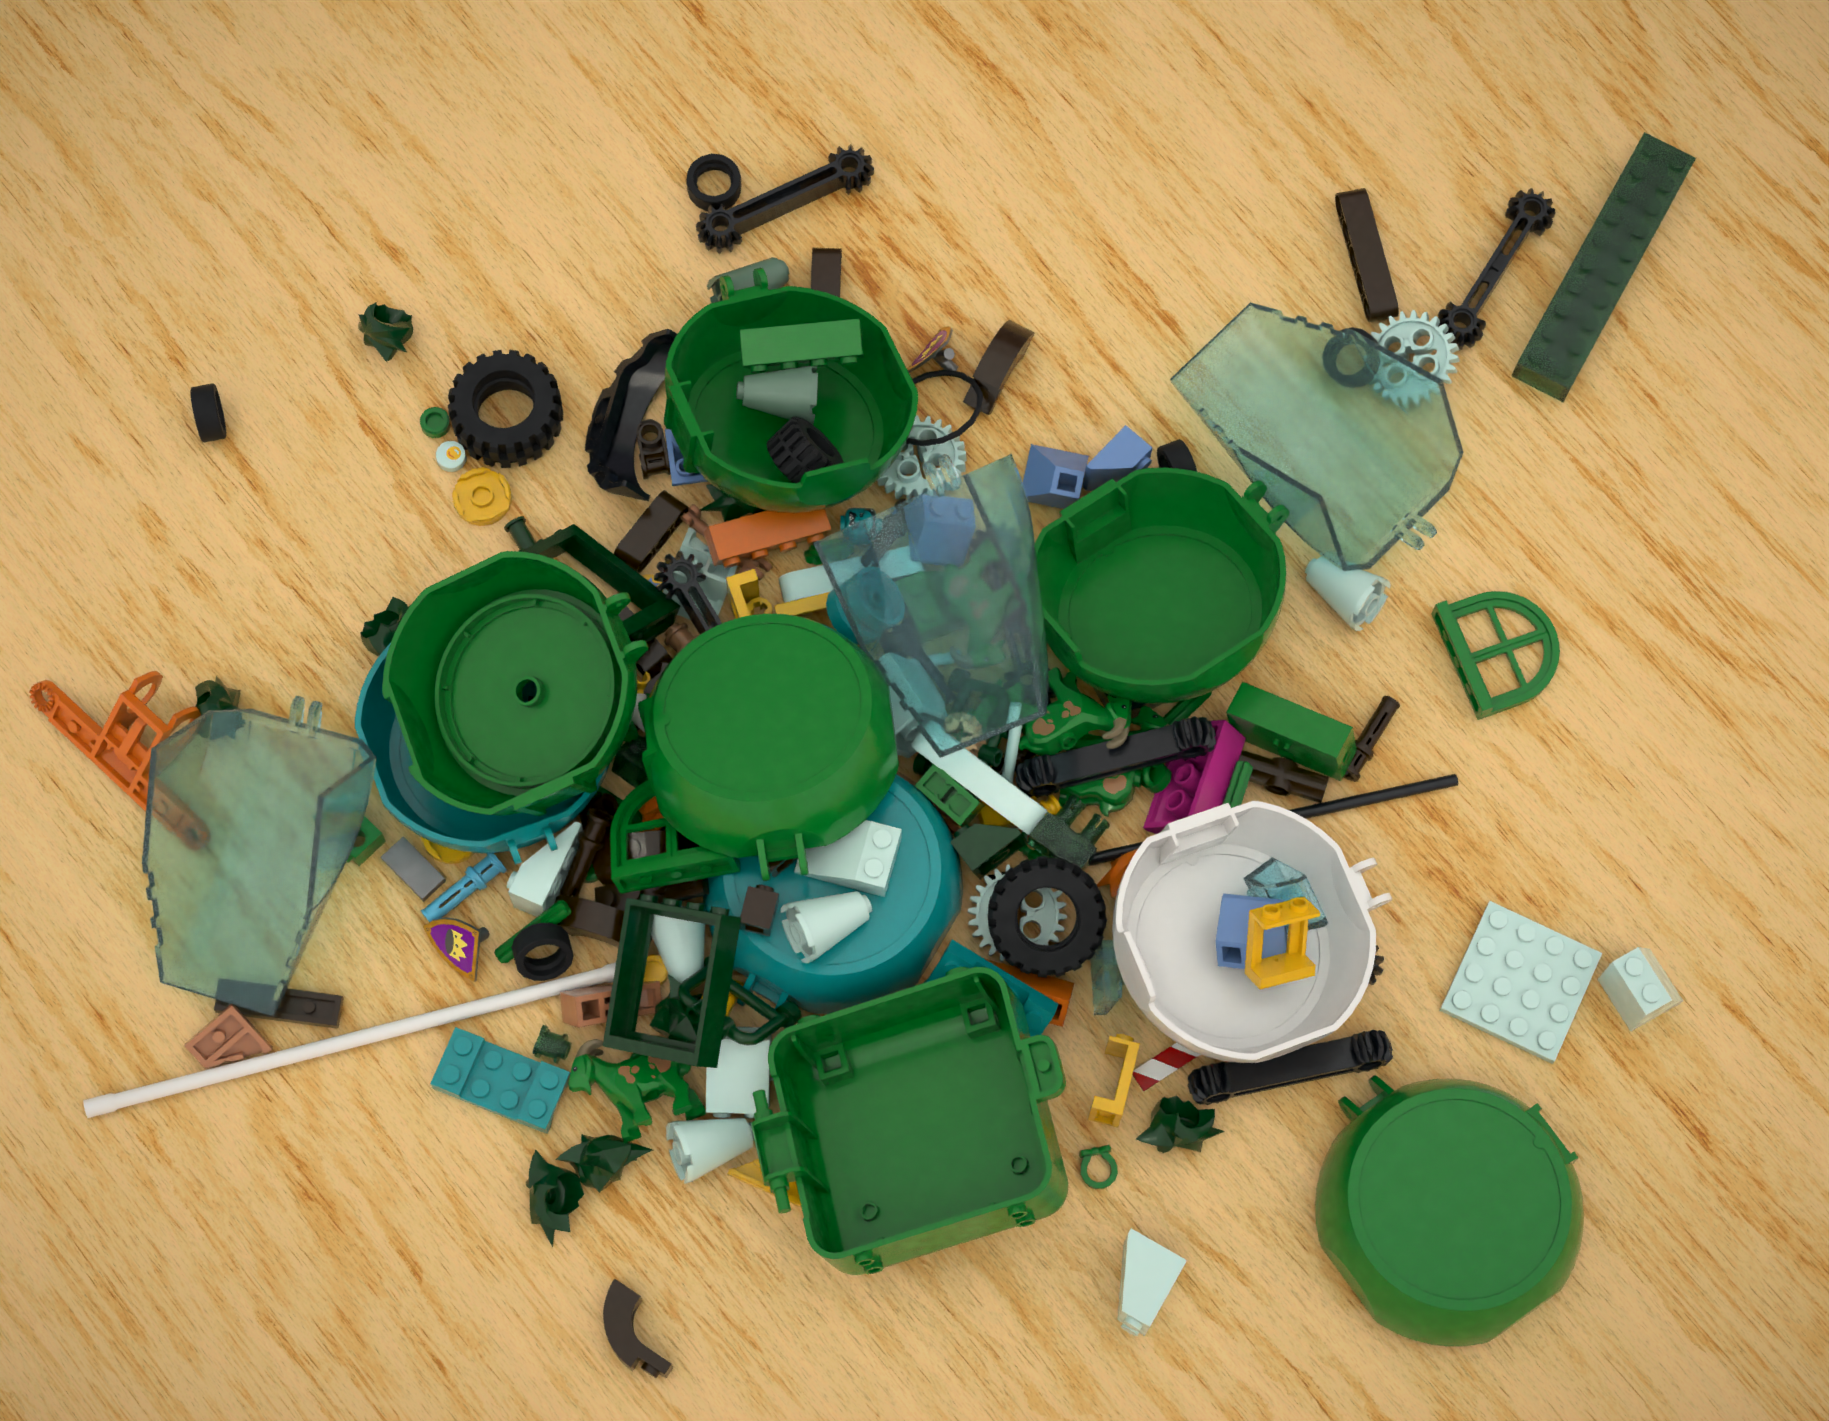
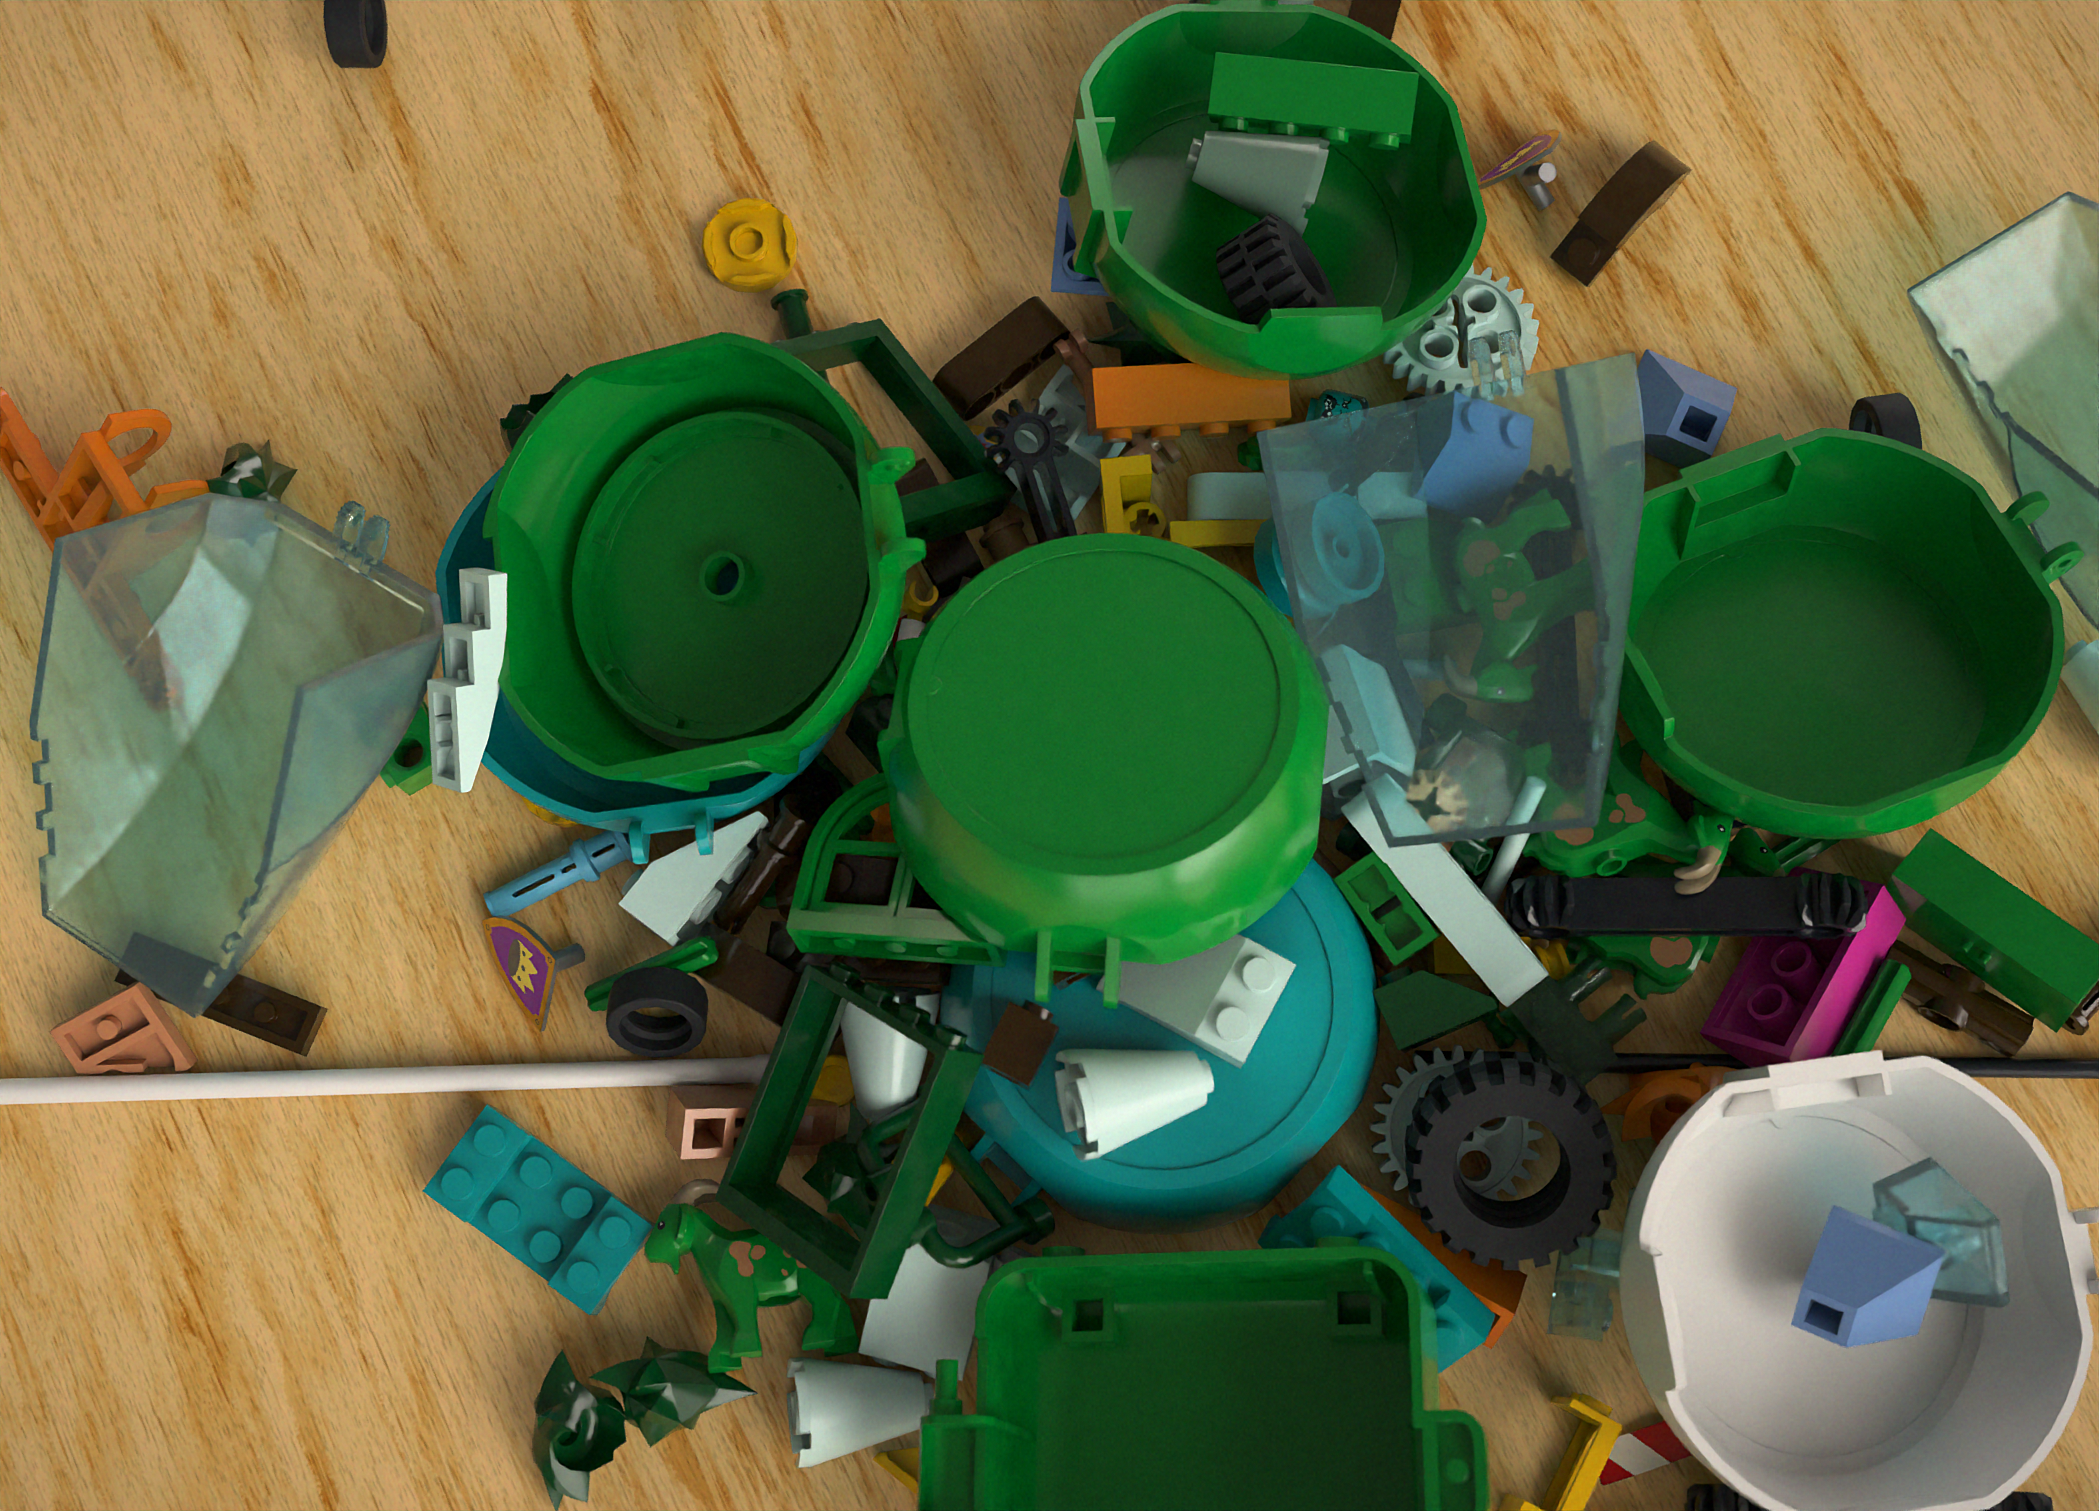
camera: 20 degrees right, 5 degrees up
(397, 788) = (466, 698): none -> light aqua slope
(413, 869) = (493, 823): flat silver tile -> none
(435, 422) = (706, 113): green tile -> none
(451, 456) = (717, 171): light aqua tile -> none
(495, 375) = (807, 57): black tyre -> none
(552, 1045) = (637, 1170): clear green brick -> none
(620, 411) = (996, 163): black windscreen -> none
(653, 453) = (1033, 232): dark brown piece -> none
(970, 422) = (1549, 295): black piece -> none
(1117, 459) = (1792, 404): medium blue slope -> none
(1156, 778) = (1740, 955): green tile -> none
(1286, 966) = (1925, 1357): yellow panel -> none

